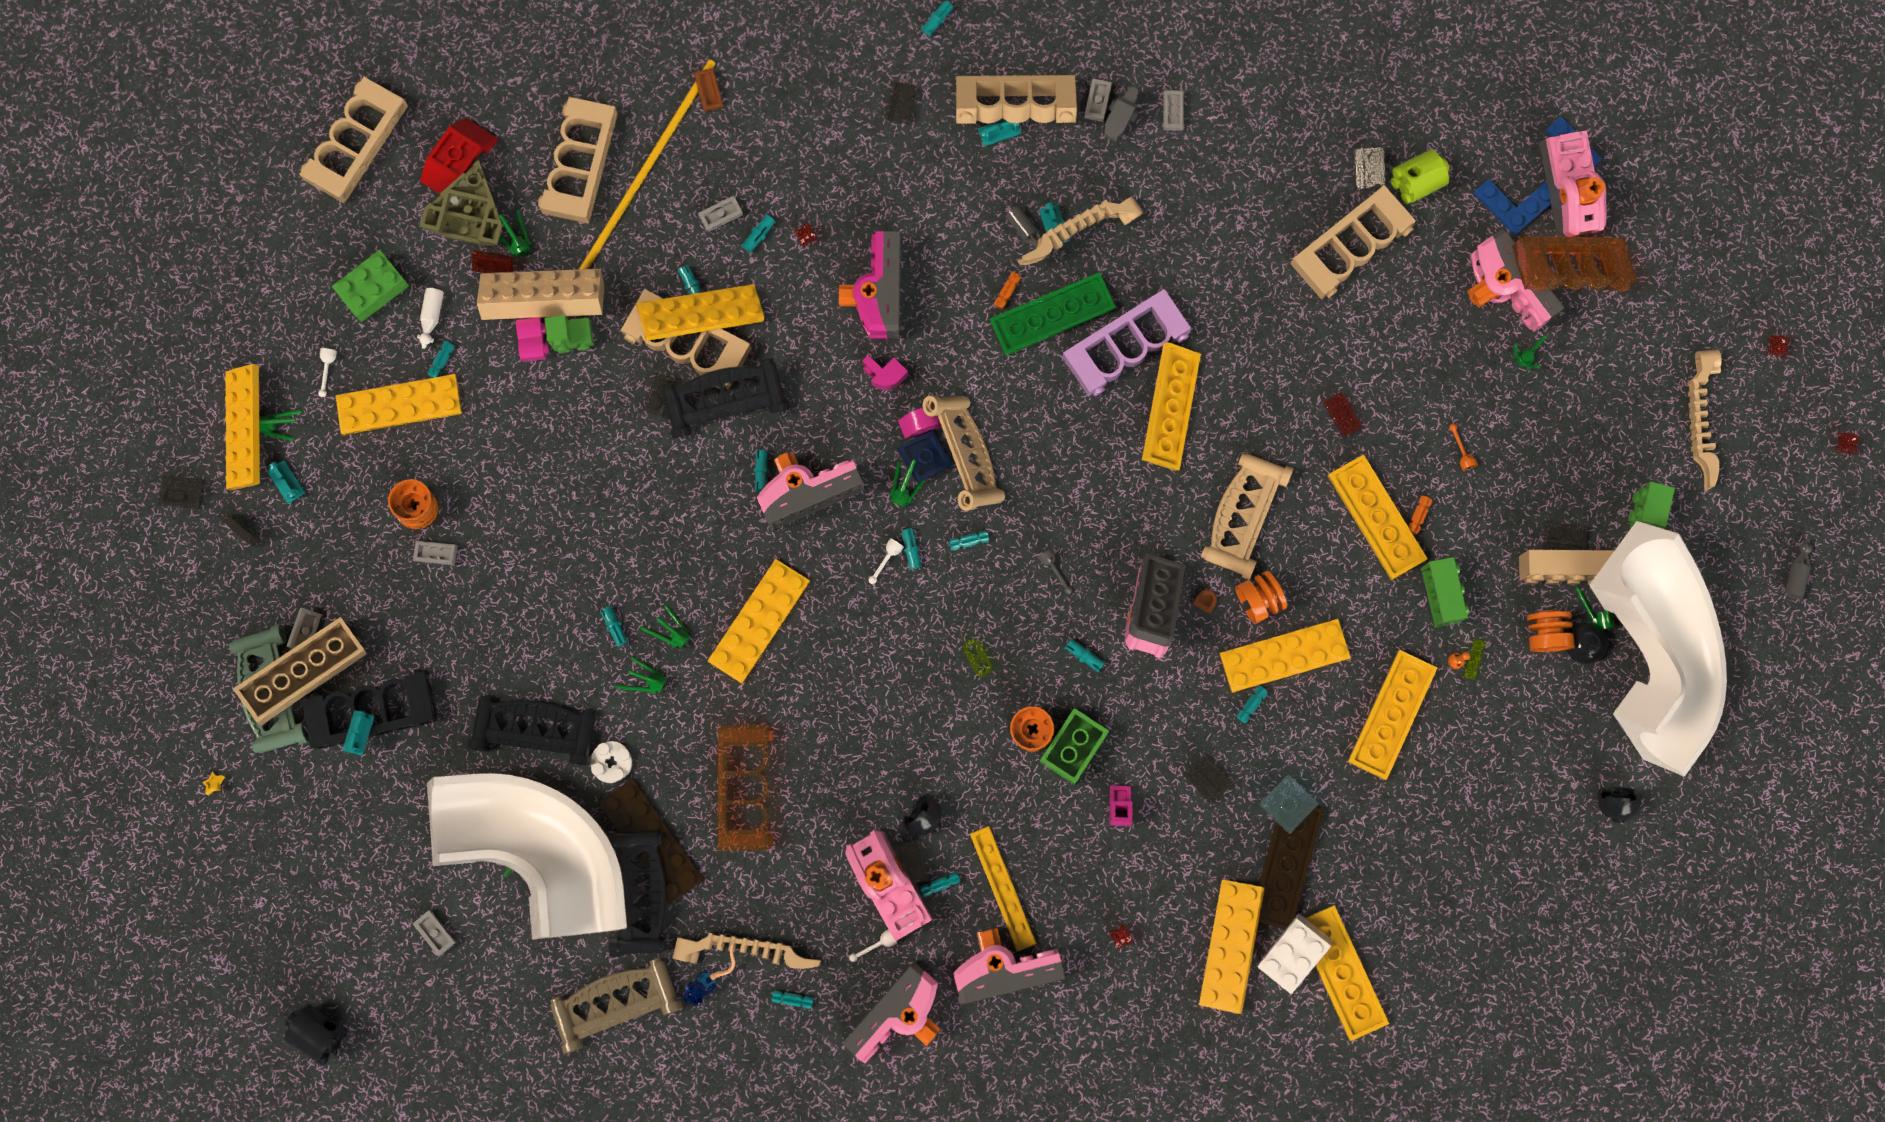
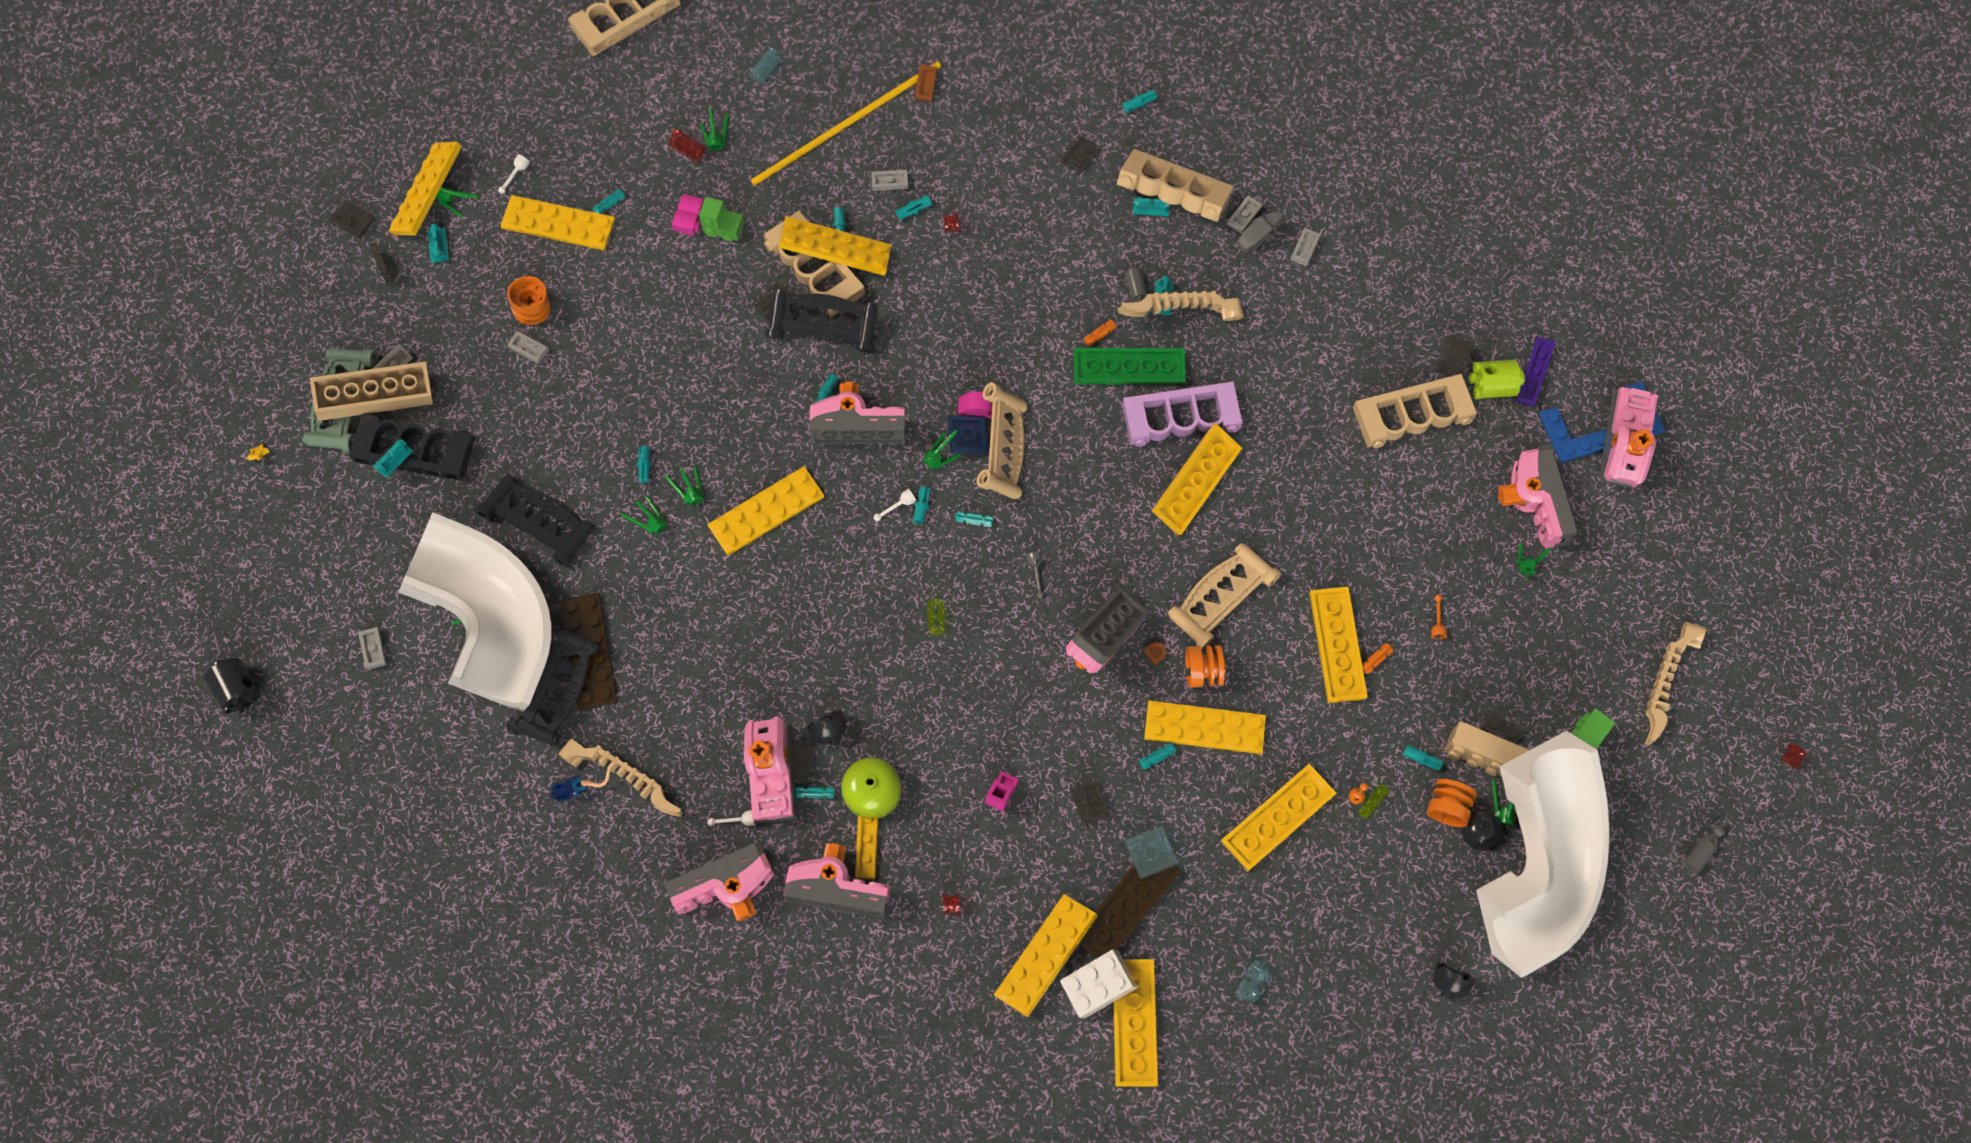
camera: 20 degrees right, 10 degrees down
(370, 286) = (581, 123): bright green brick -> none
(430, 314) = (617, 163): white wheel -> none
(455, 154) = (696, 52): red slope -> none
(465, 211) = (683, 95): olive wedge -> none
(531, 139) = (765, 65): none -> clear light blue hinge
(540, 294) = (713, 180): tan brick -> none
(588, 114) = (810, 59): tan fence -> none
(616, 772) = (591, 582): white plate -> none
(659, 995) = (532, 780): dark tan piece -> none
(742, 736) = (675, 685): clear orange fence -> none
(792, 999) = (642, 834): teal axle -> none
(882, 308) = (990, 289): piece -> none
(887, 378) = (966, 360): dark pink brick -> none
(992, 874) = (874, 799): none -> lime cylinder
(1029, 717) = (956, 682): orange wheel -> none
(1074, 746) = (984, 723): bright green brick -> none
(1084, 655) = (1029, 653): teal pin -> none
(1342, 414) = (1343, 547): clear red plate -> none
(1435, 893) = (1250, 990): none -> clear light blue hinge
(1445, 592) = (1370, 729): bright green brick -> none
(1454, 148) = (1535, 371): none -> dark purple plate
(1503, 596) = (1423, 758): none -> teal axle
(1536, 274) = (1563, 493): clear orange fence -> none
(1778, 346) = (1762, 647): clear red wheel -> none

